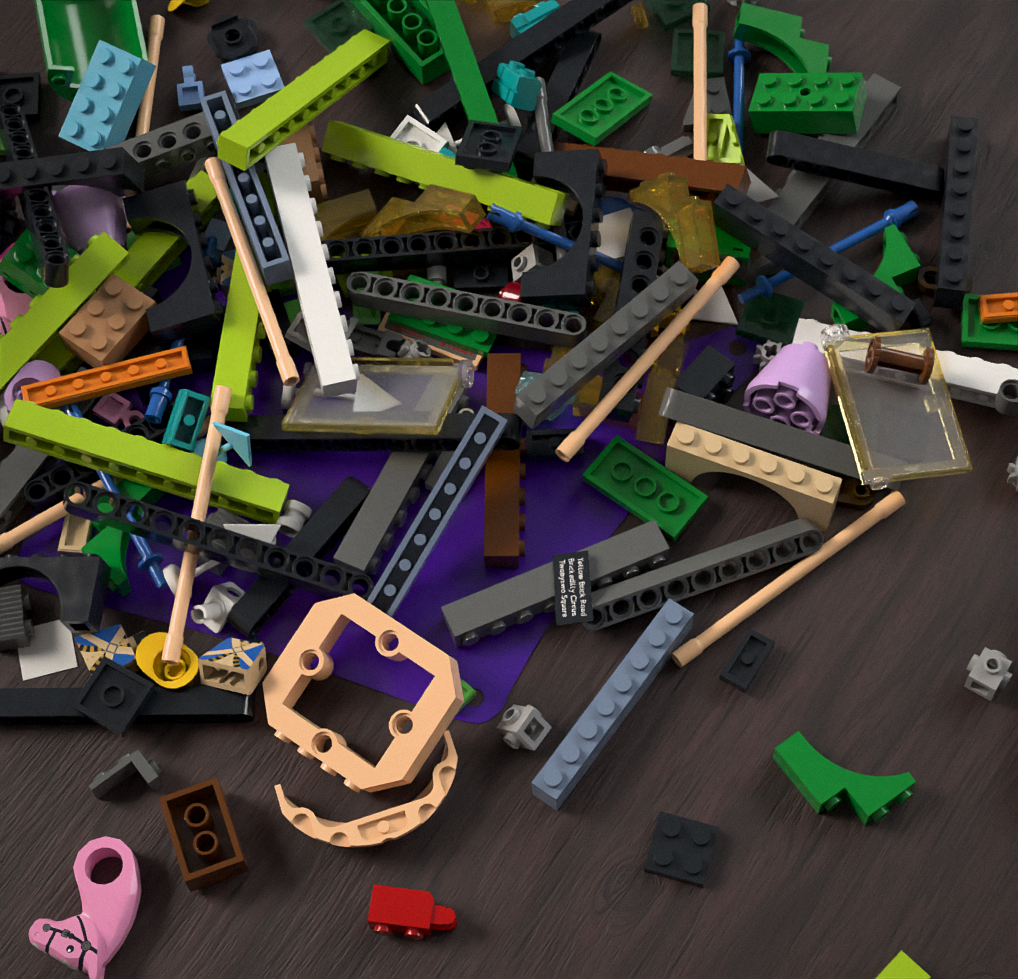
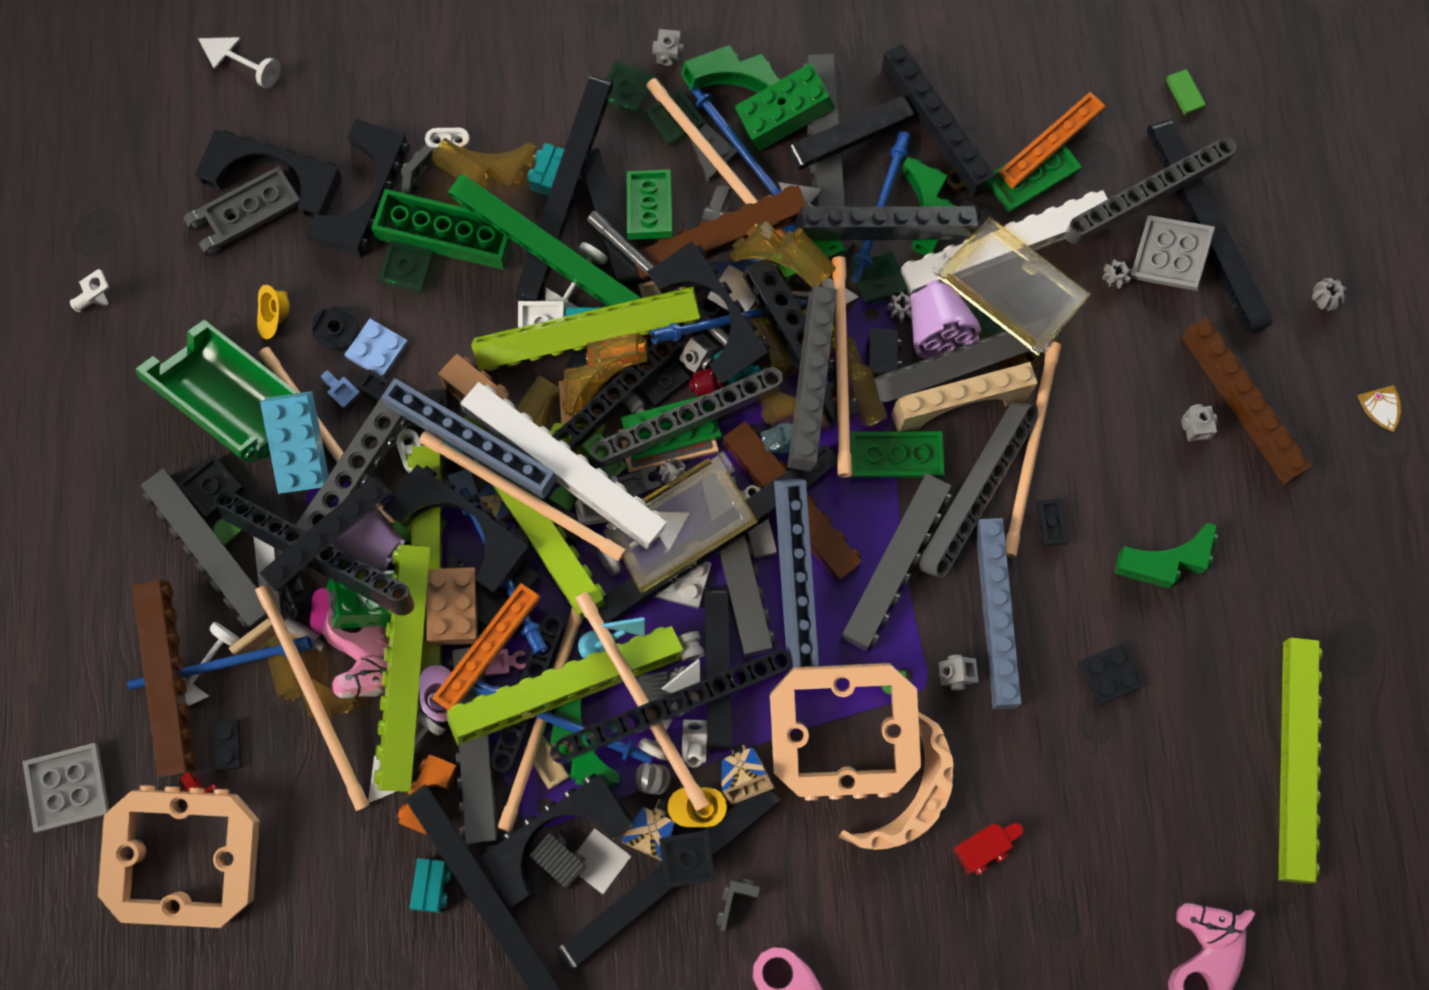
camera: 45 degrees left, 10 degrees up
(152, 607) = (652, 778): none -> light grey piece
(186, 420) = (568, 635): teal brick -> none
(203, 834) = (821, 900): reddish brown brick -> none
(302, 100) = (449, 345): lime brick -> none
(337, 466) = (689, 588): none -> white plate
(488, 146) = (610, 288): black plate -> none
(516, 85) = (582, 228): teal brick -> none
(572, 587) = (915, 557): black sticker -> none
(639, 16) = (613, 116): clear yellow tile -> none
(723, 140) = (749, 172): lime wing -> none
(899, 360) = (1013, 247): reddish brown hose -> none

